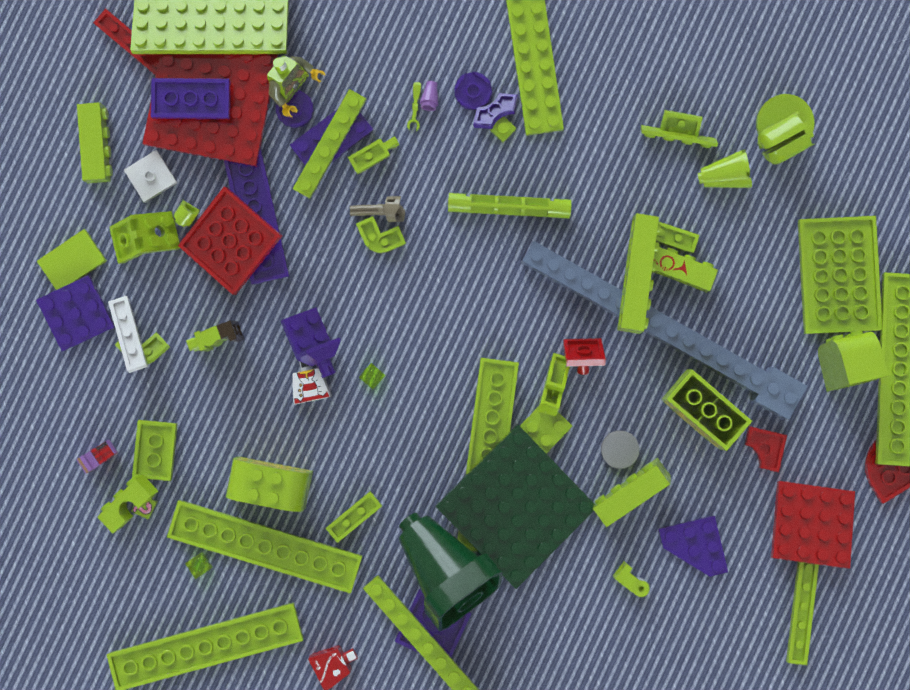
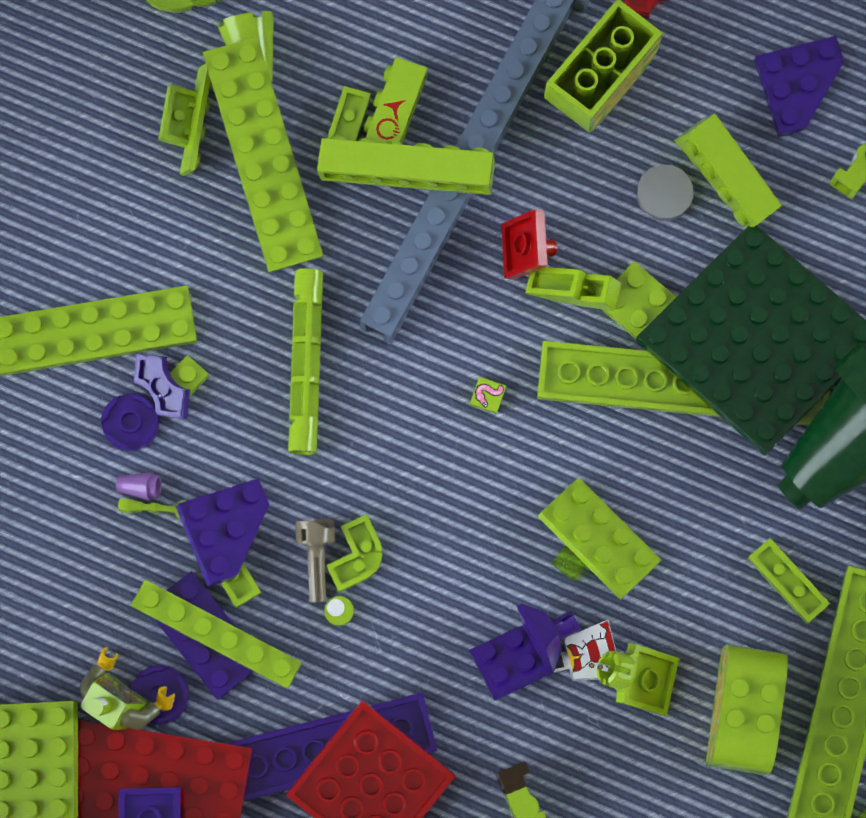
camera: 90 degrees left, 10 degrees down
(291, 416) = (640, 677): none -> lime plate
(344, 224) = (339, 611): none -> lime tile
(385, 394) = (599, 538): none -> lime plate
(398, 149) = (223, 528): none -> dark purple plate
(483, 325) = (487, 395): none -> lime tile
(652, 178) = (263, 154): none -> lime plate

